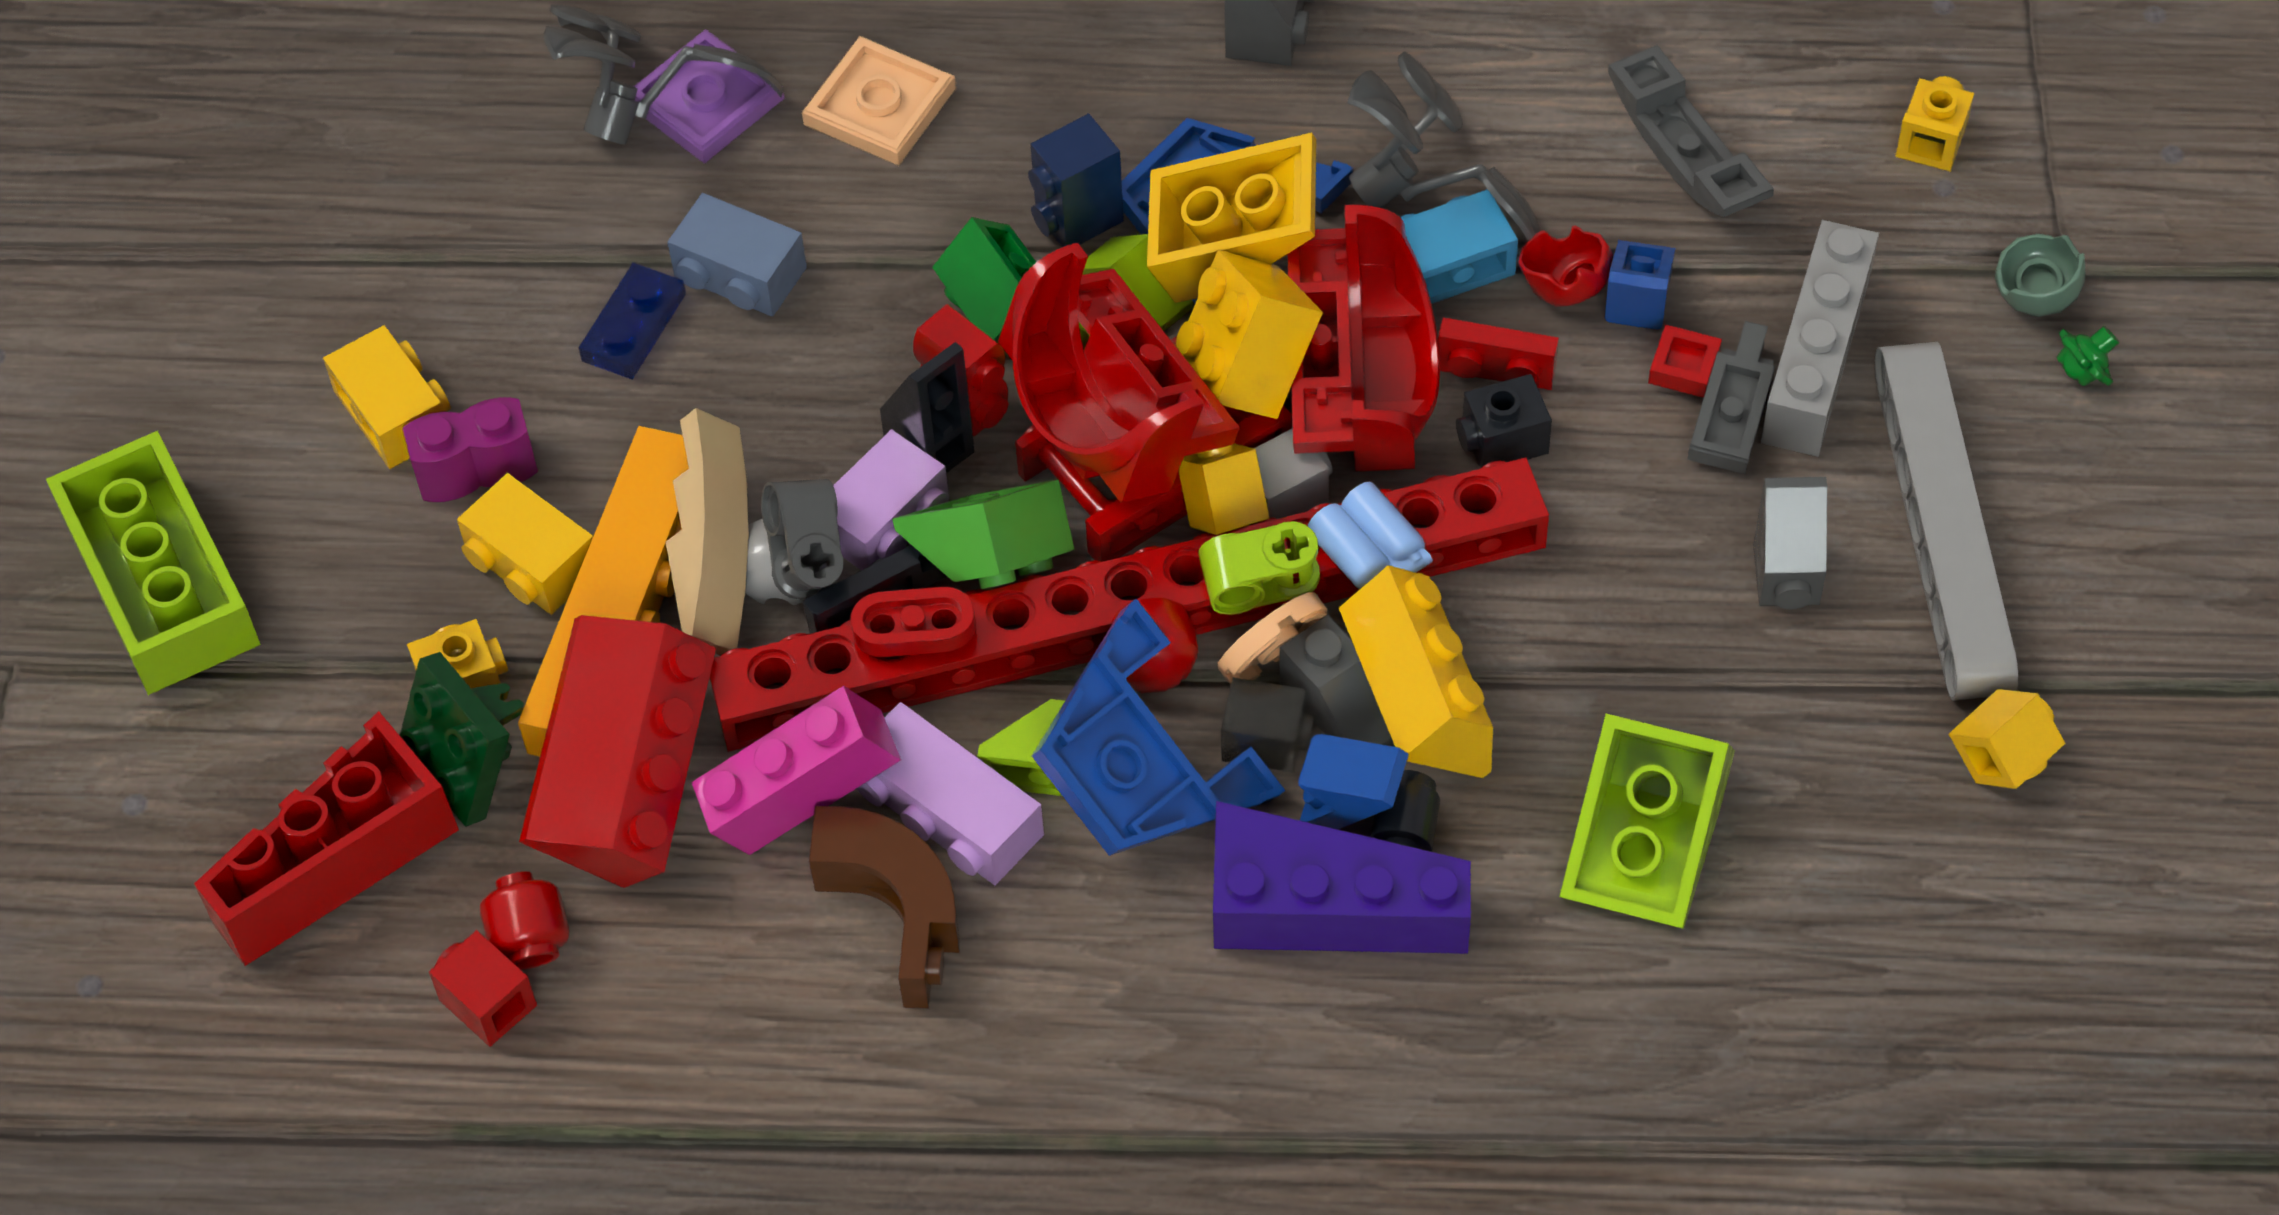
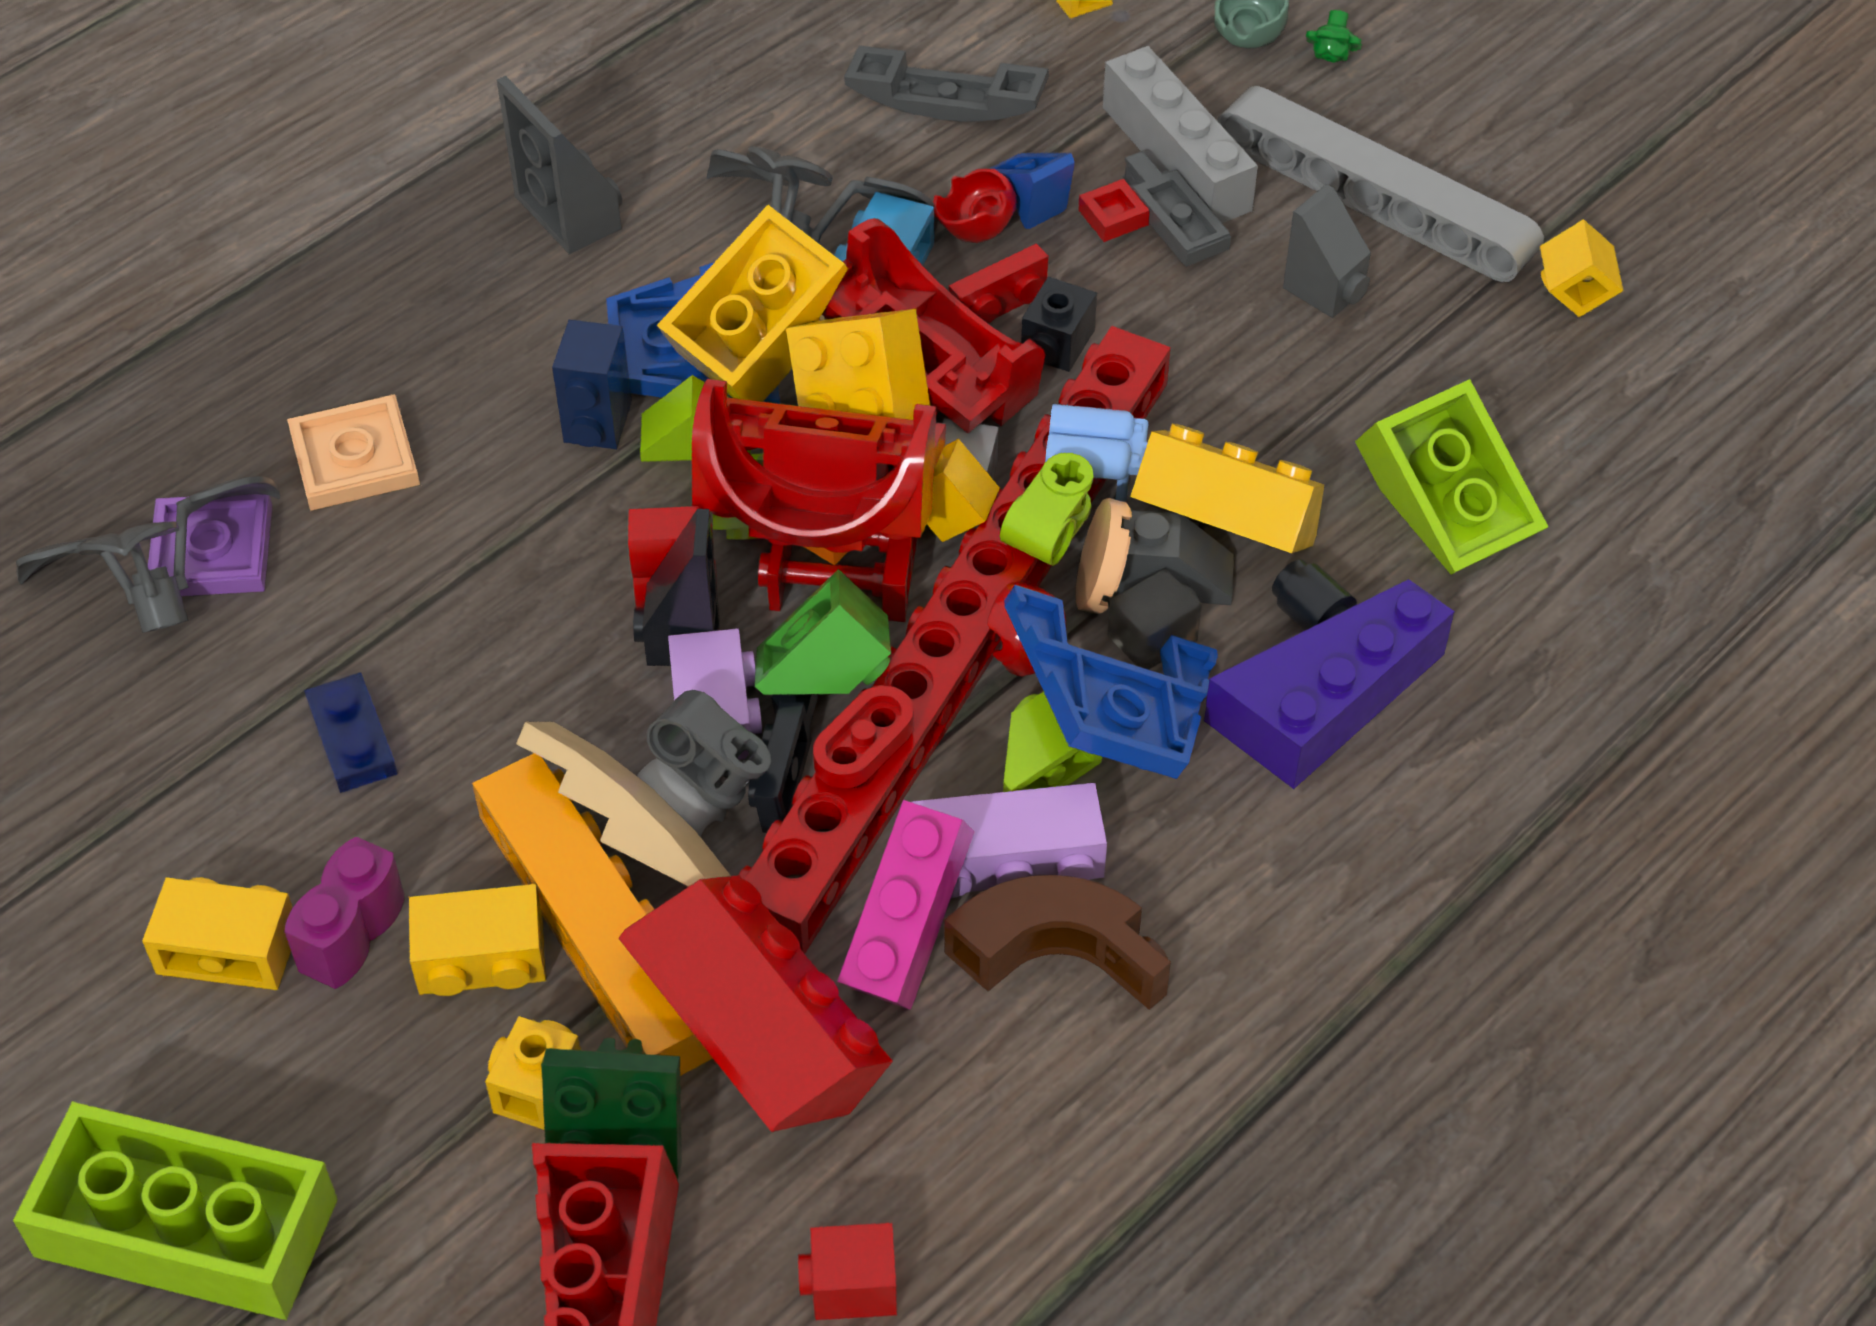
camera: 50 degrees left, 5 degrees down
(525, 919) = (822, 1191): red head -> none
(737, 255) = (384, 621): sand blue brick -> none
(983, 272) = (601, 487): green brick -> none
(1348, 780) = (1272, 598): blue slope -> none

